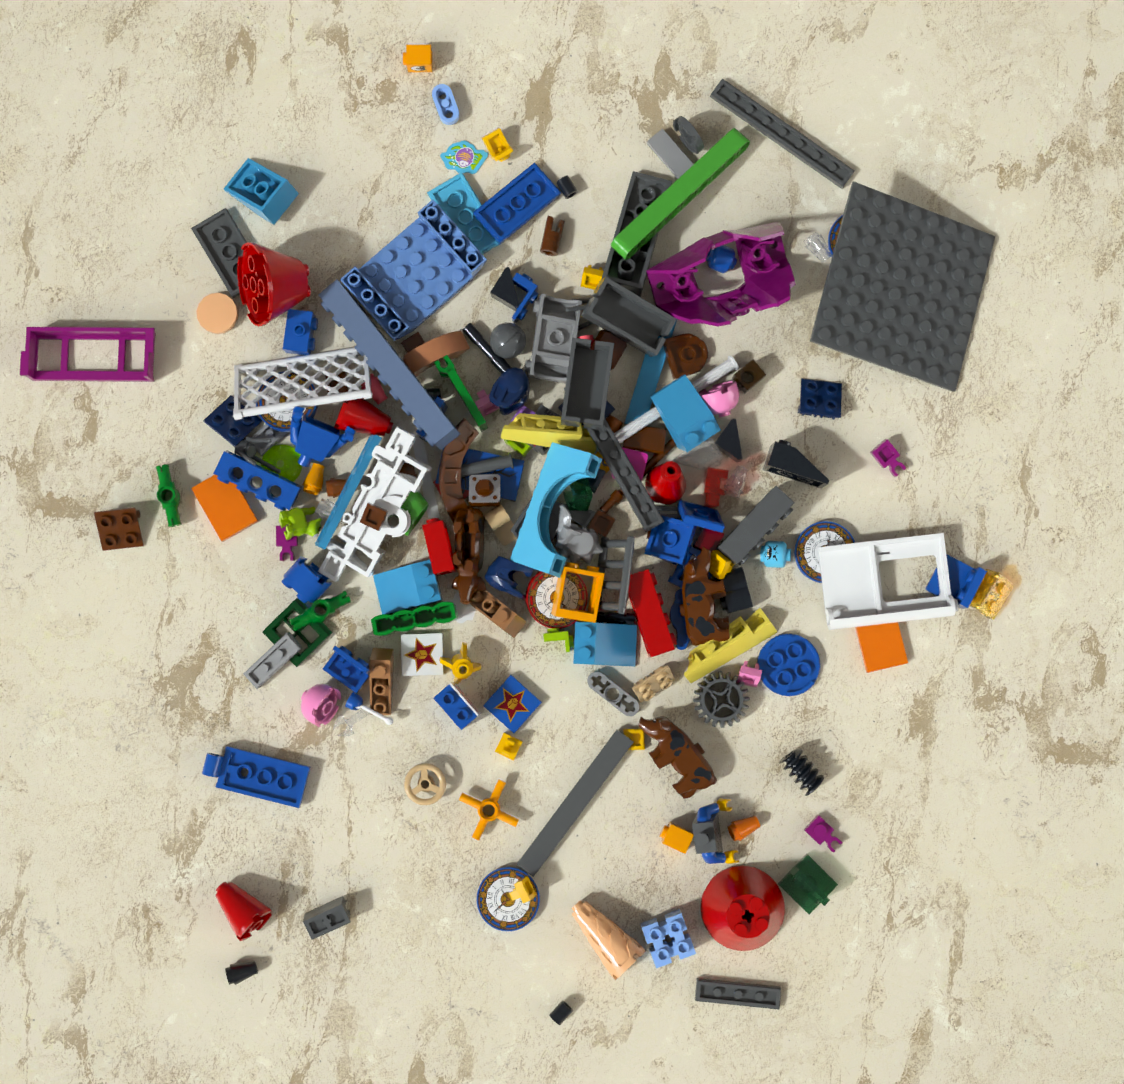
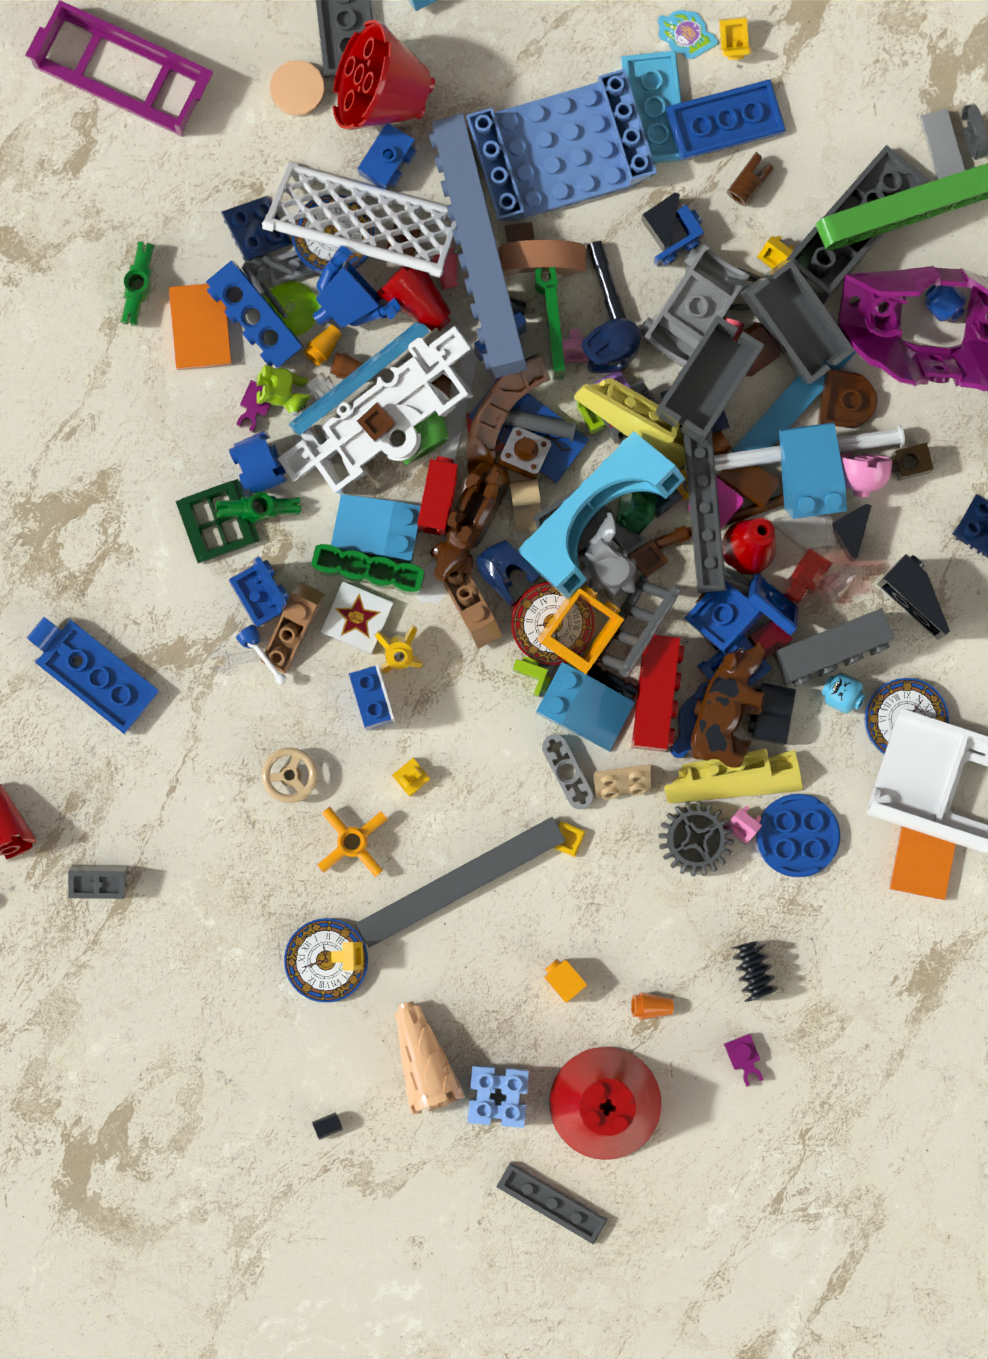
camera: 20 degrees right, 0 degrees up
(119, 528) = (59, 296): reddish brown hinge -> none
(273, 660) = (173, 541): light grey tile -> none
(319, 704) = (206, 619): bright pink cylinder -> none
(507, 340) = (636, 282): dark grey piece -> none
(512, 704) = (439, 727): blue tile -> none
(566, 187) = (796, 127): black hinge -> none
(678, 750) = (618, 882): reddish brown animal -> none
(708, 835) = (604, 994): torso -> none
(720, 564) = (769, 674): yellow tile -> none
(808, 884) = (698, 1111): clear green bracket -> none

